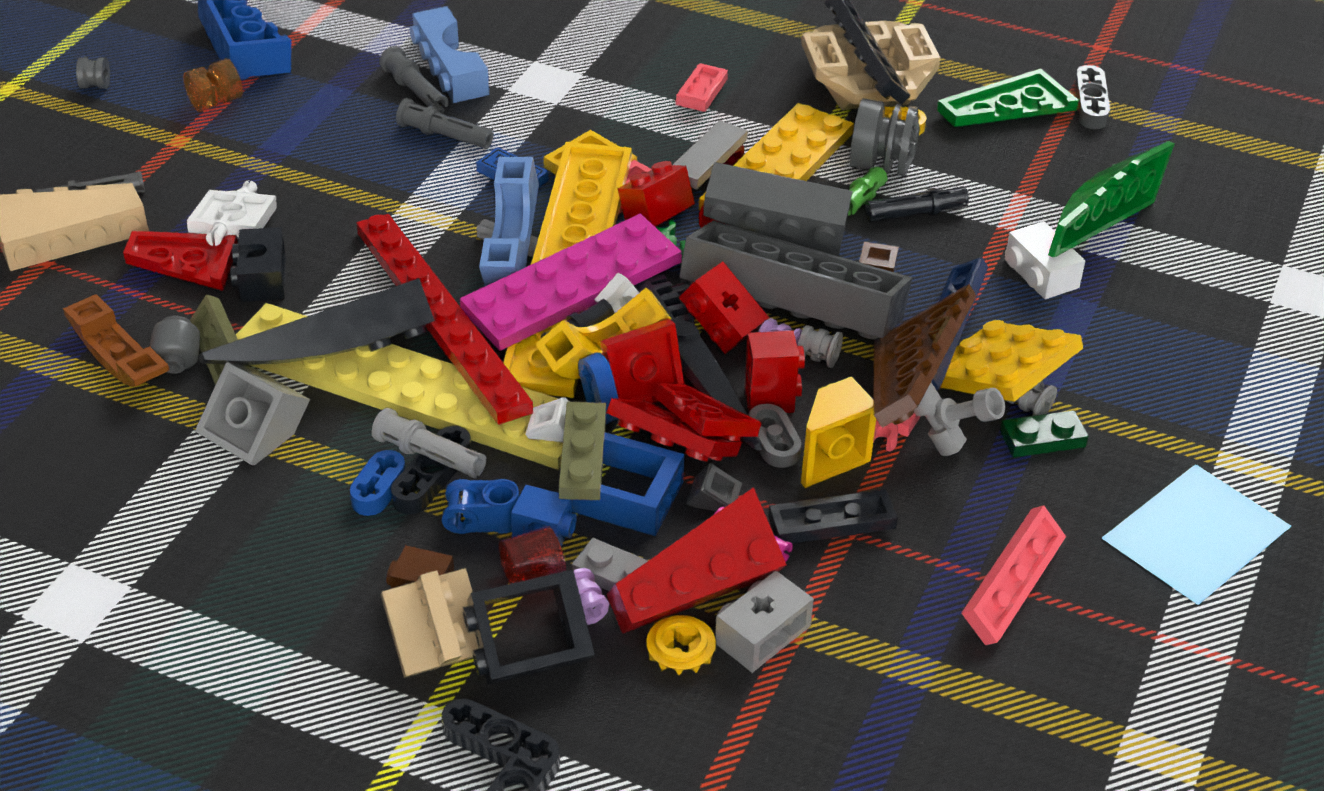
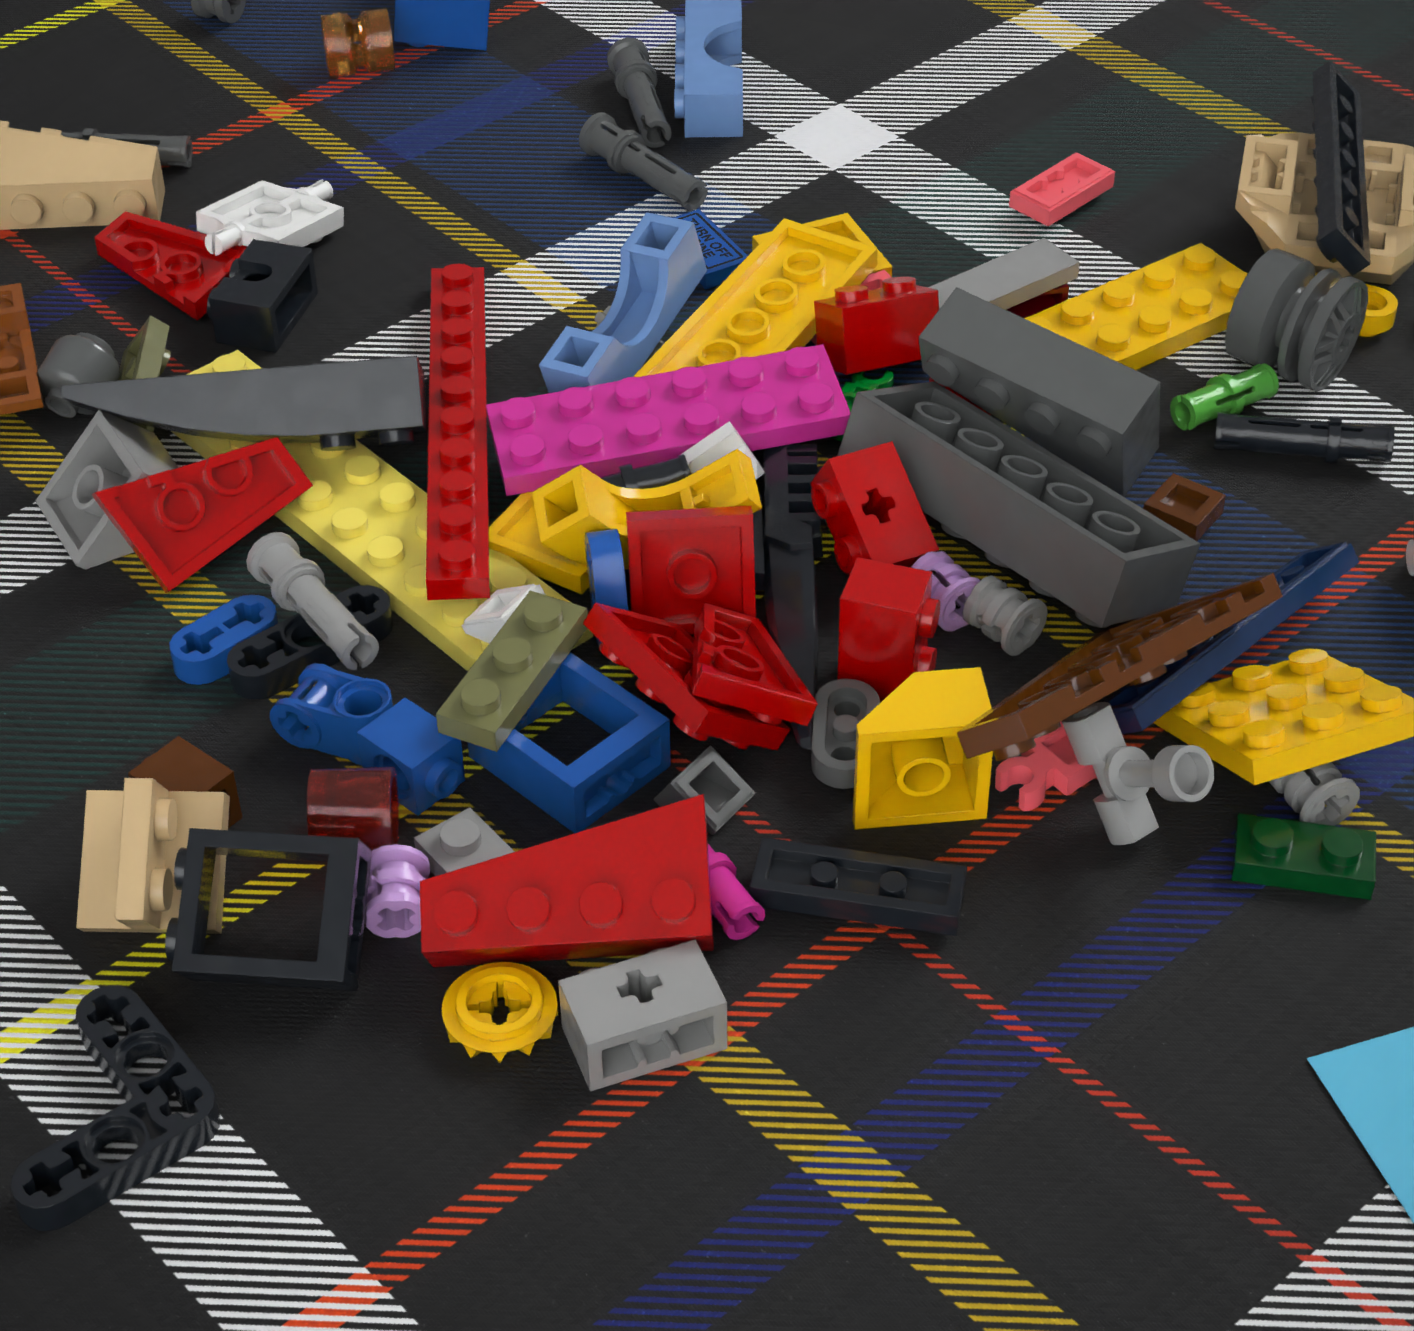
camera: 25 degrees right, 0 degrees up
(323, 406) = (203, 508): none -> red wing
(1013, 575) = (1100, 1071): coral plate -> none

